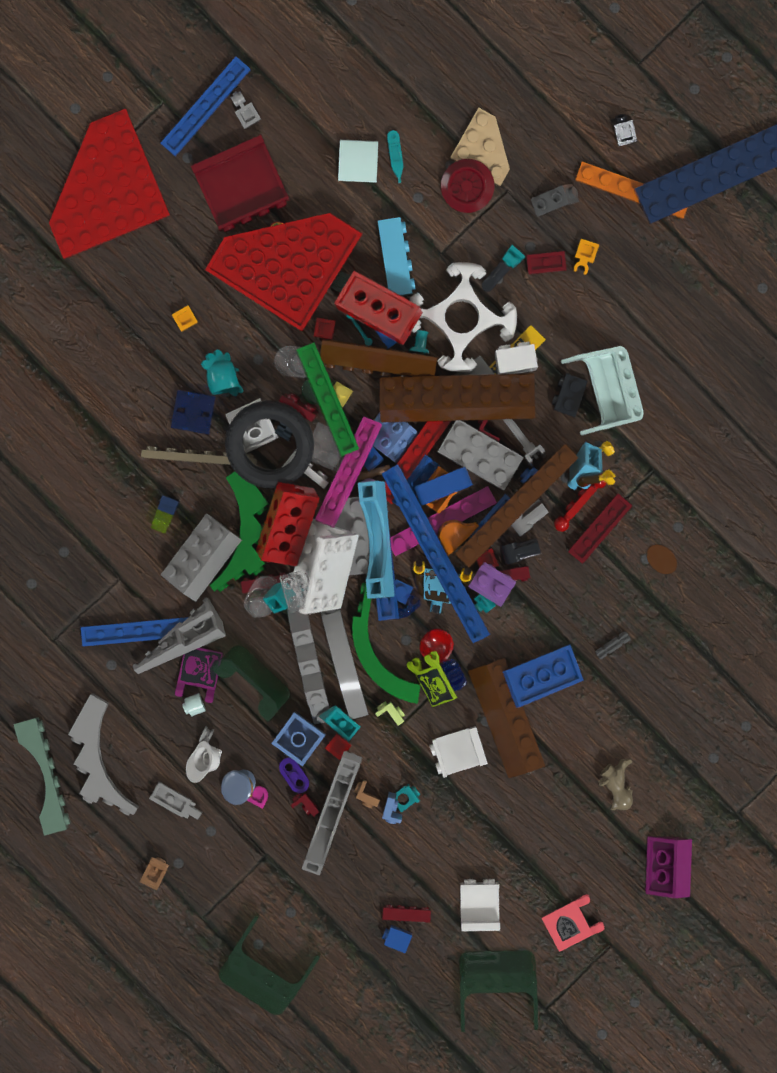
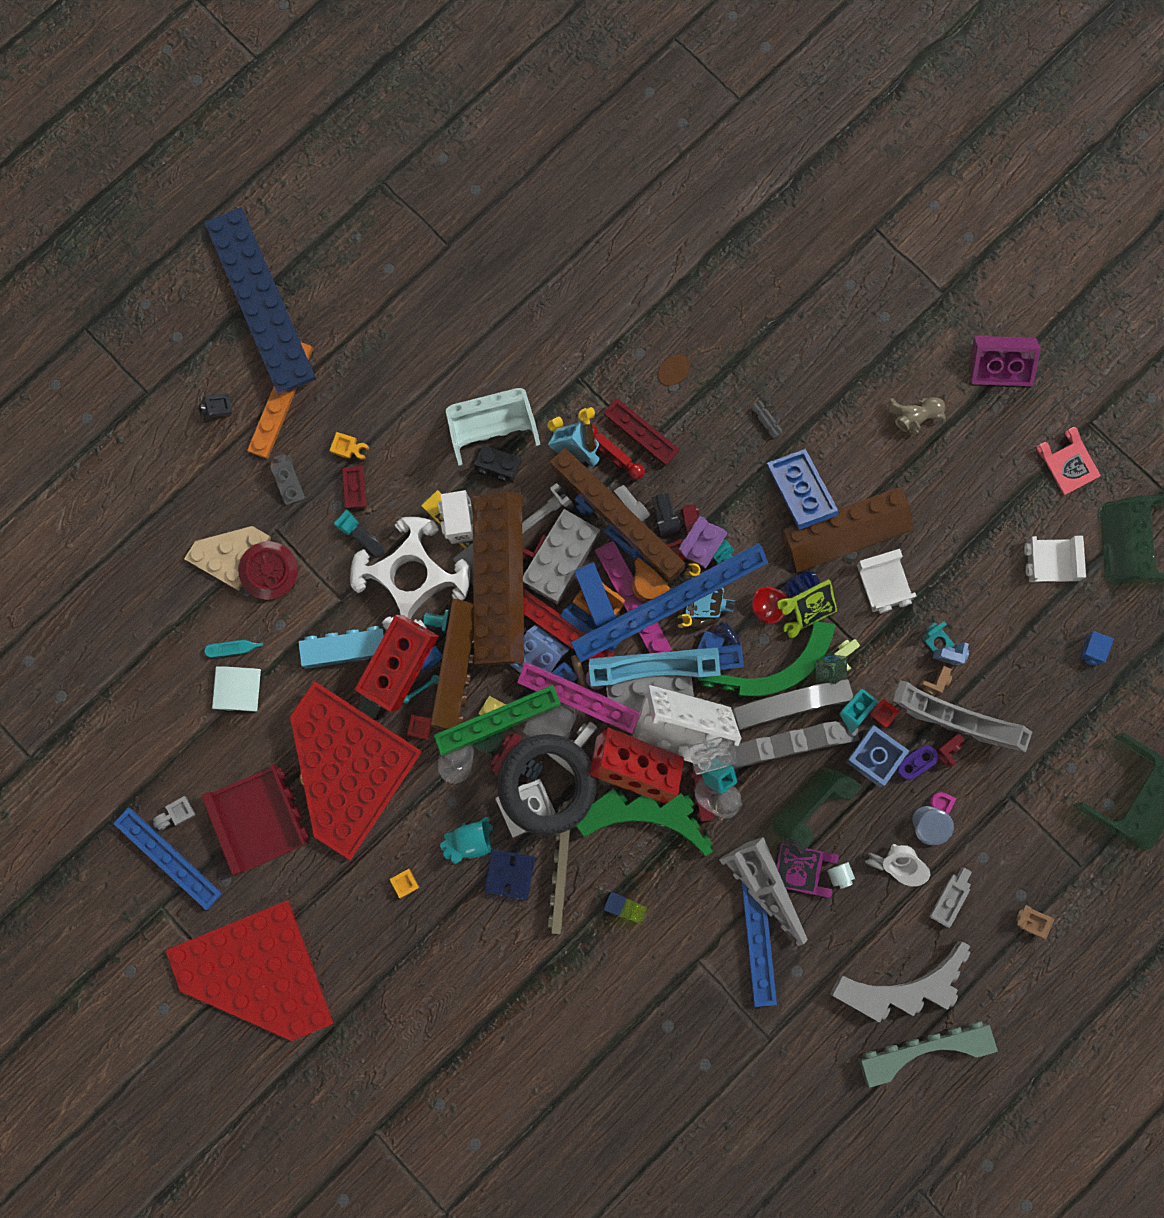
camera: 85 degrees left, 10 degrees down
(201, 557) = (674, 865): light grey brick -> none
(376, 698) = (831, 668): none -> clear green brick
(402, 913) = (1067, 639): dark red piece -> none

